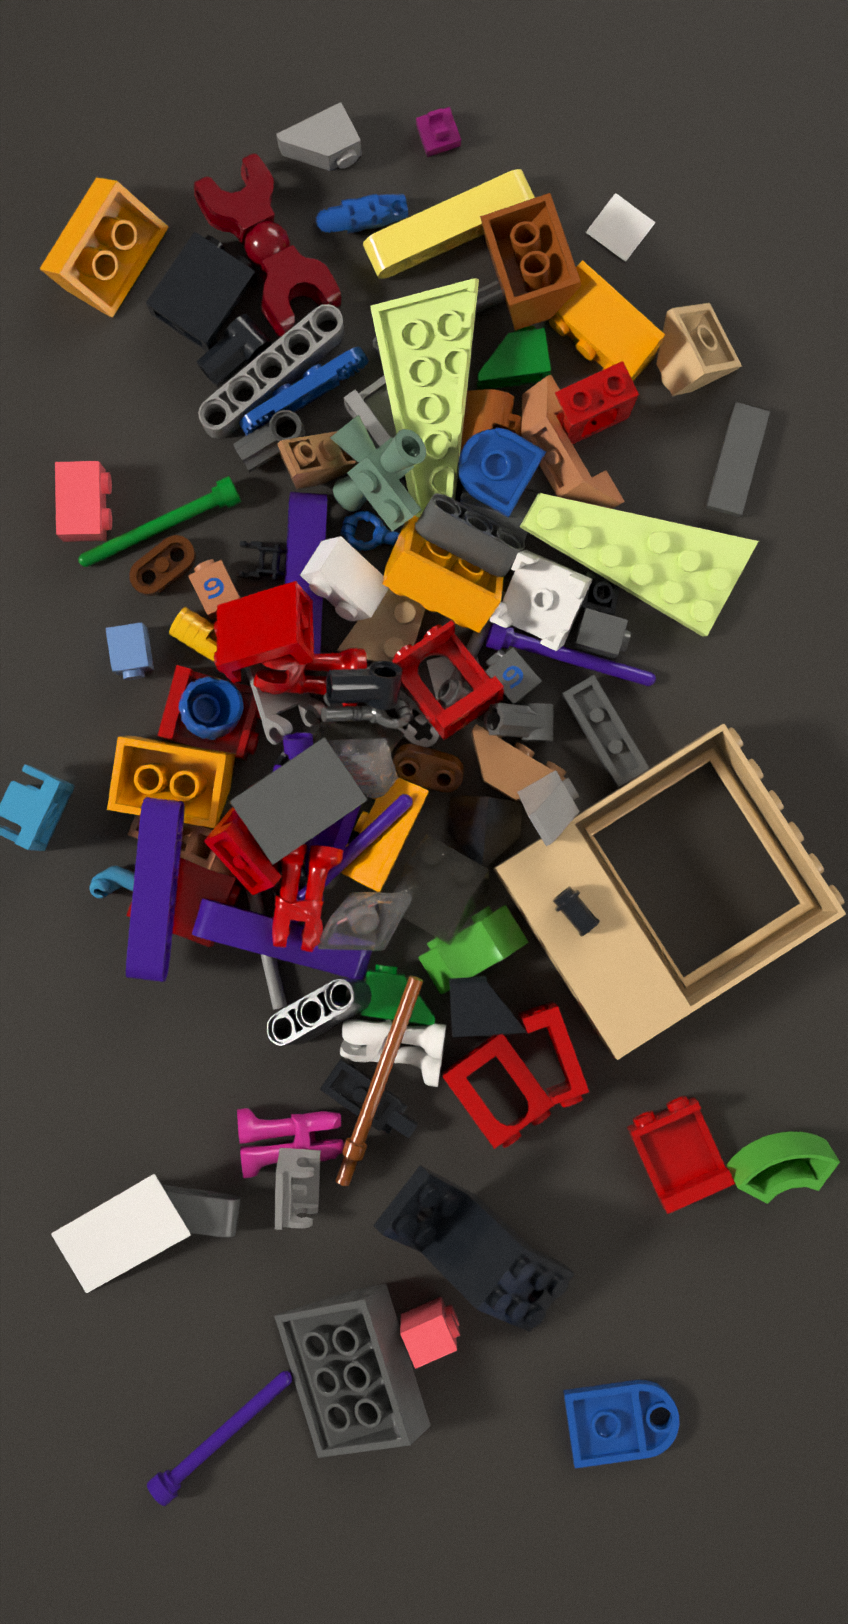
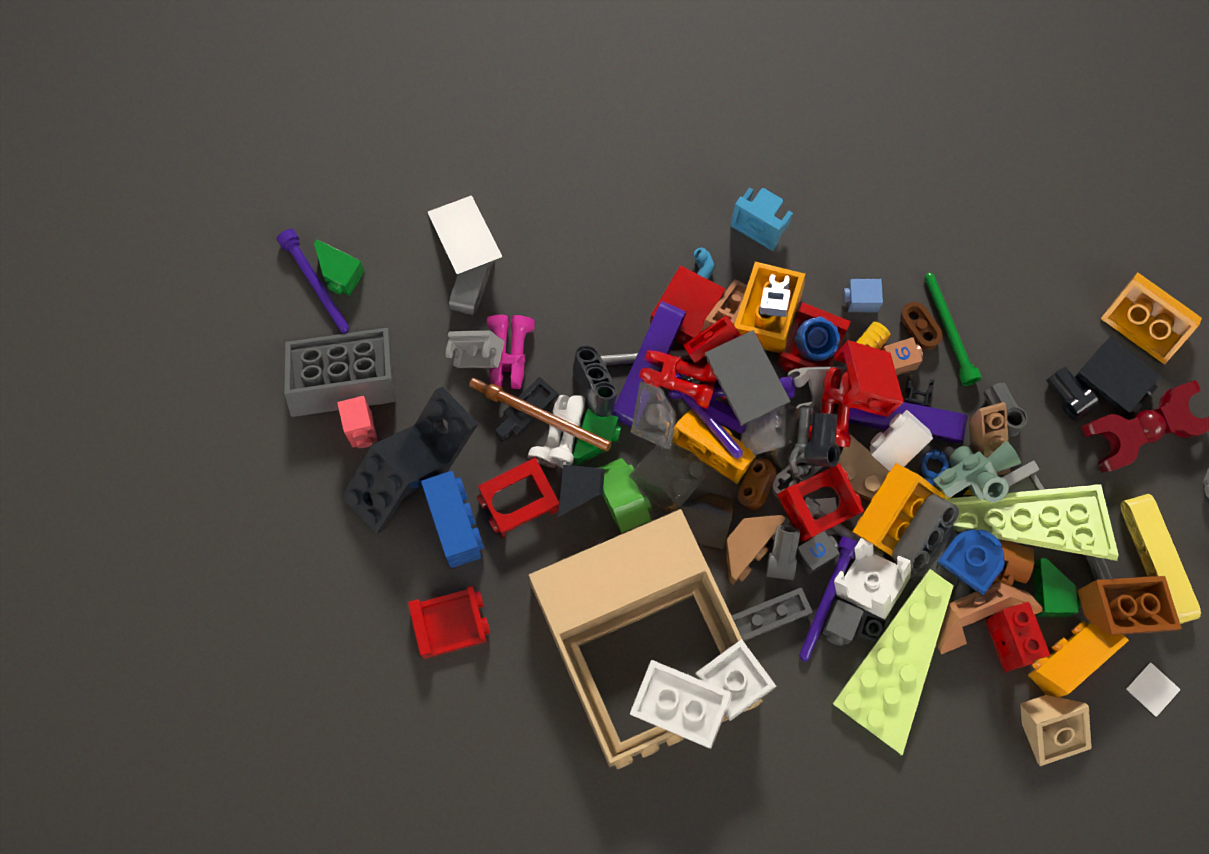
camera: 100 degrees right, 15 degrees down
(82, 501) = (971, 278): coral brick -> none
(155, 889) = (697, 282): dark purple beam -> none
(168, 773) = (776, 298): none -> plate
(199, 1407) = (338, 268): none -> green slope
(278, 355) = (1056, 430): light grey beam -> none
(314, 384) = (1042, 442): blue plate -> none
(363, 213) = (1170, 497): blue hinge -> none
(546, 1175) = (453, 519): none -> blue brick
(550, 805) = (720, 555): light grey slope -> none
(574, 1086) = (540, 544): red panel -> none
(575, 911) = (642, 558): black pin -> none
(614, 1422) = (263, 547): blue tile -> none
(717, 765) = (740, 674): none -> white plate
(737, 459) = (967, 750): dark grey tile -> none
(762, 833) = (681, 704): none -> white plate
(782, 1163) = (428, 694): bright green brick -> none

